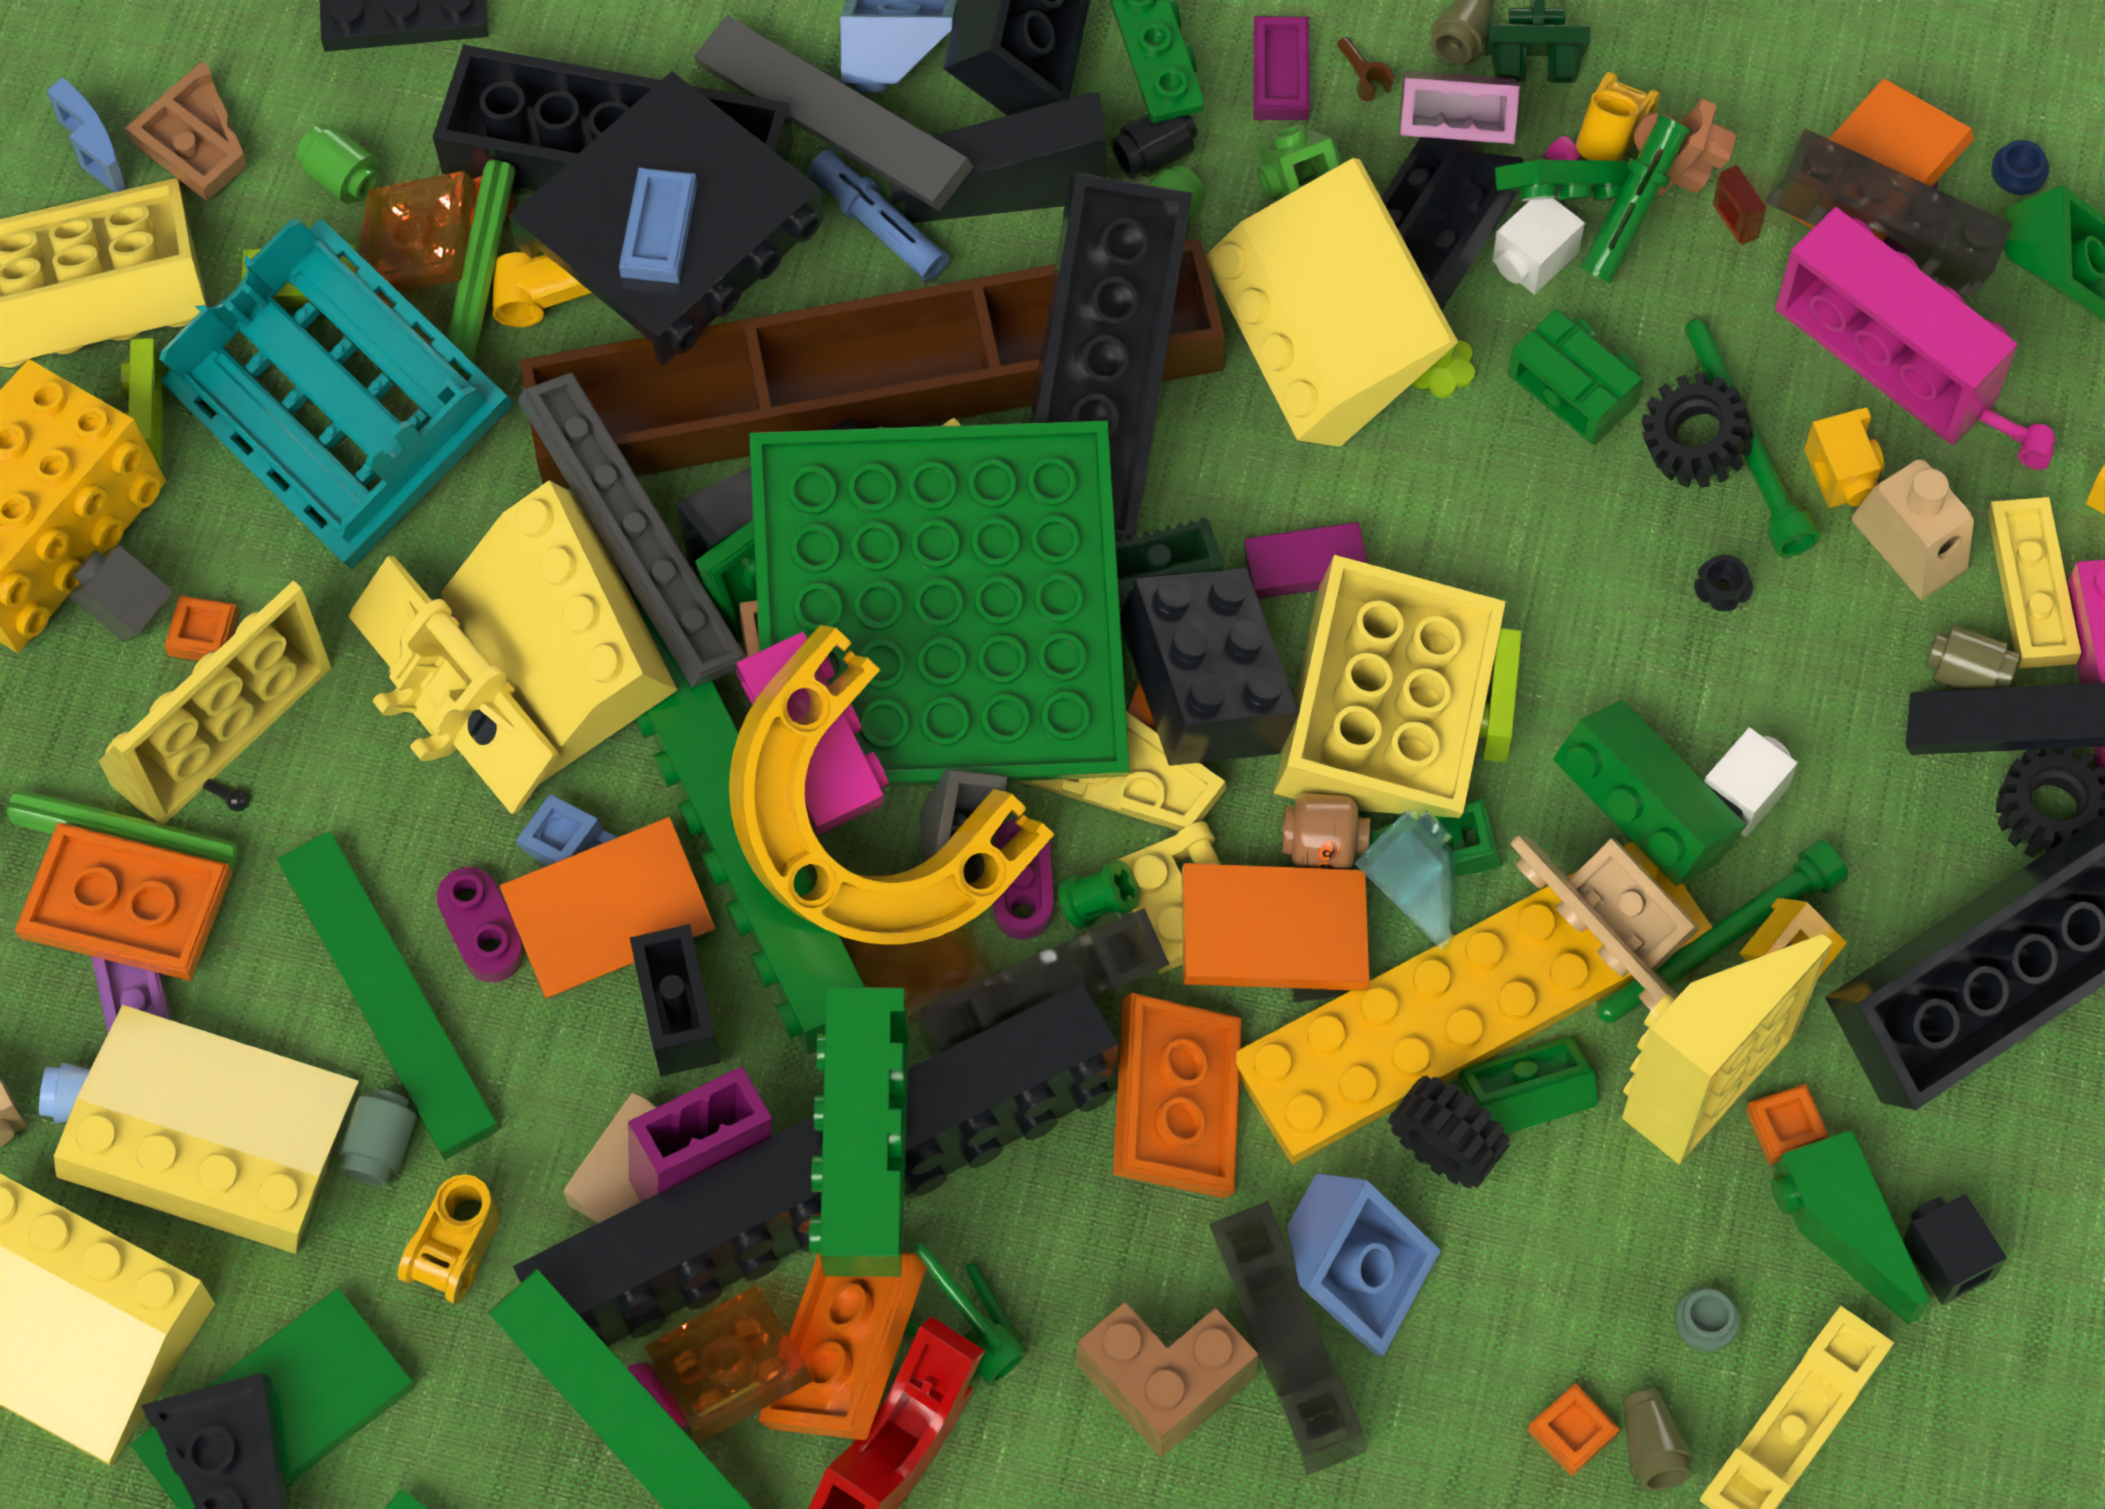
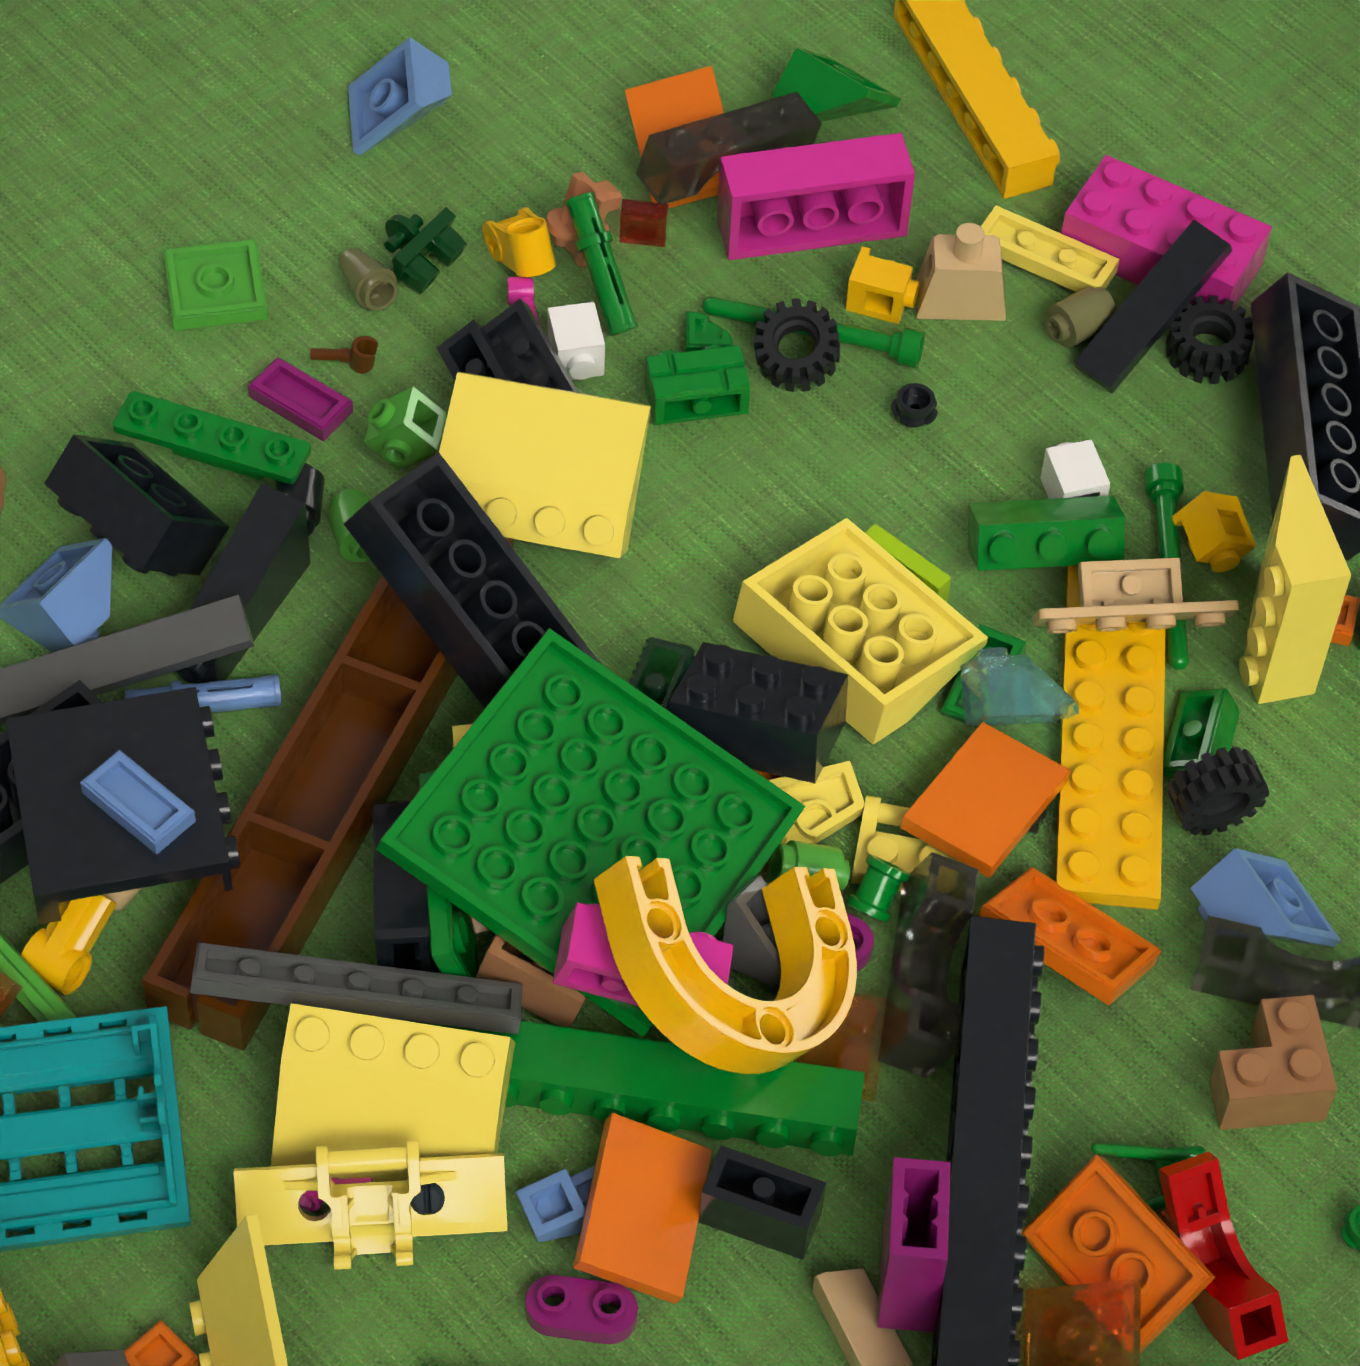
camera: 60 degrees left, 10 degrees down
(862, 1131) = (1009, 1106): green wedge -> none
(1075, 820) = (811, 856): none -> bright green brick
(1299, 559) = (706, 612): magenta tile -> none
(1324, 831) = (933, 729): medium nougat head -> none
(1459, 107) = (447, 308): brick -> none
(1568, 177) = (560, 284): green plate -> none
(1652, 348) = (702, 332): none -> green tile
(2020, 167) = (740, 74): dark blue plate -> none
(2036, 440) = (945, 189): dark pink hand -> none

